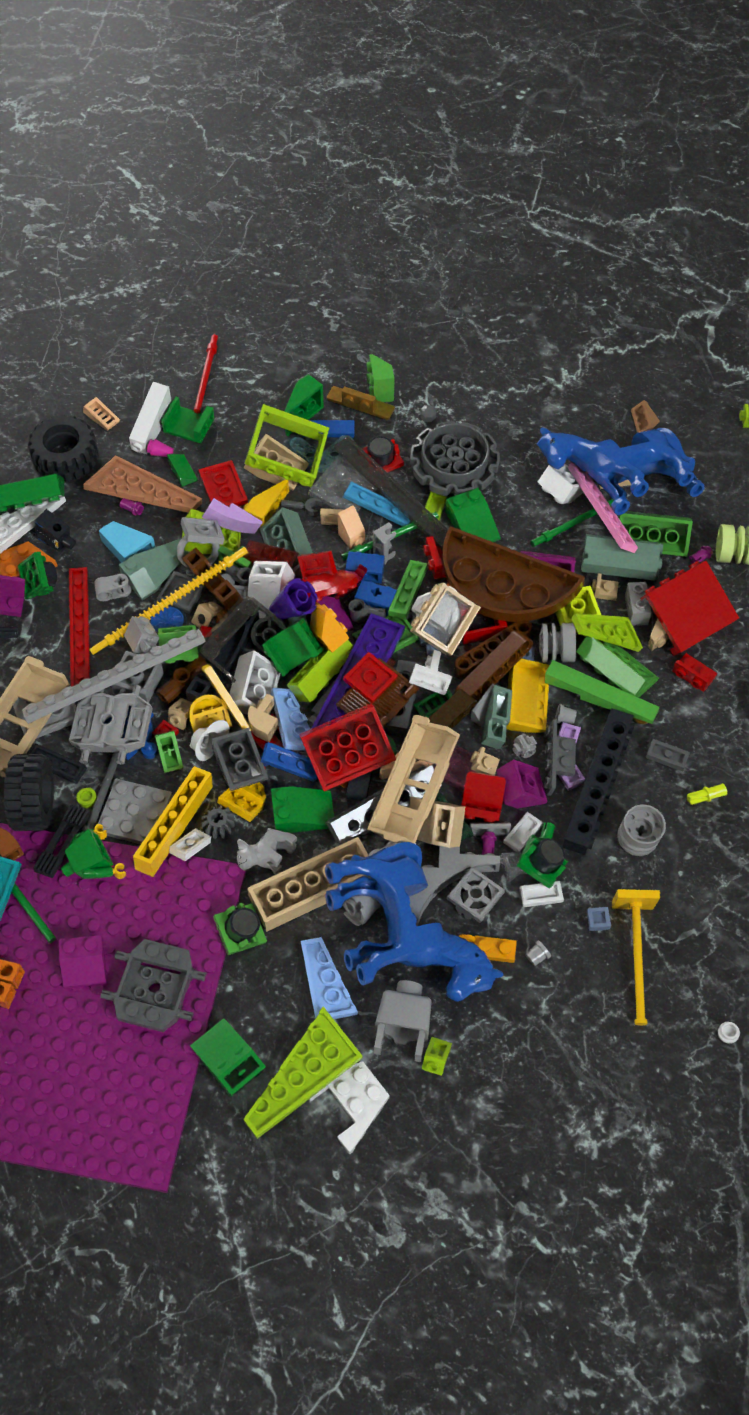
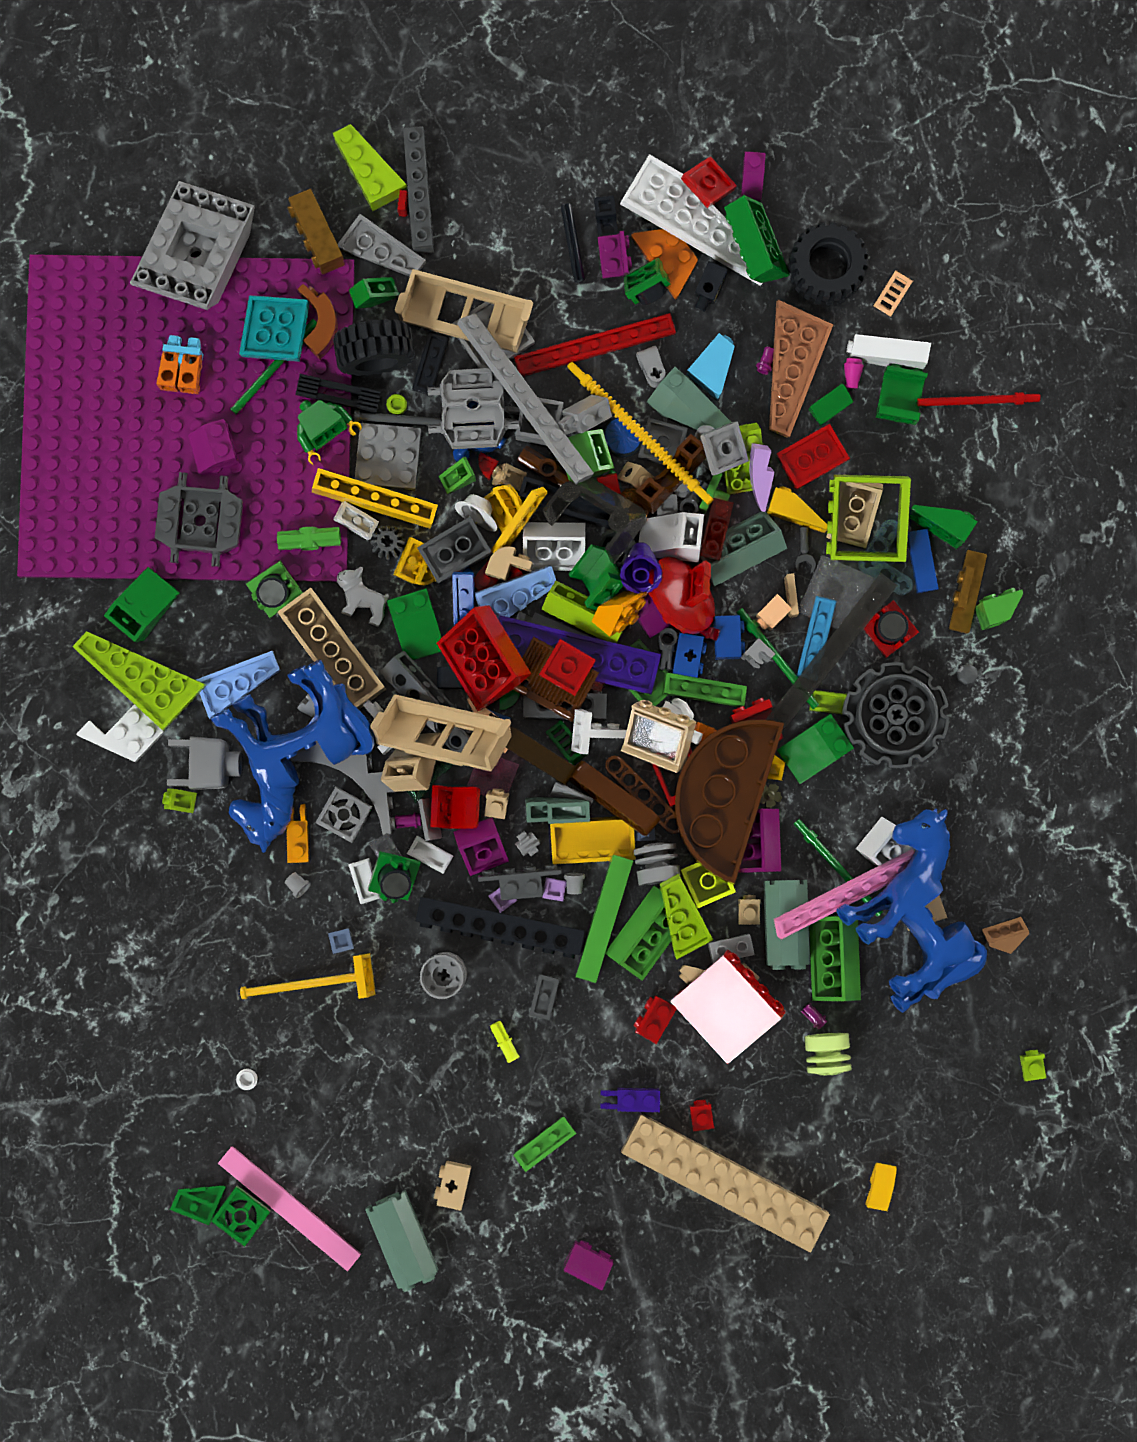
camera: 80 degrees right, 25 degrees up
(198, 886) = (308, 538): none -> bright green piece
(547, 831) = (428, 879): green pin -> none

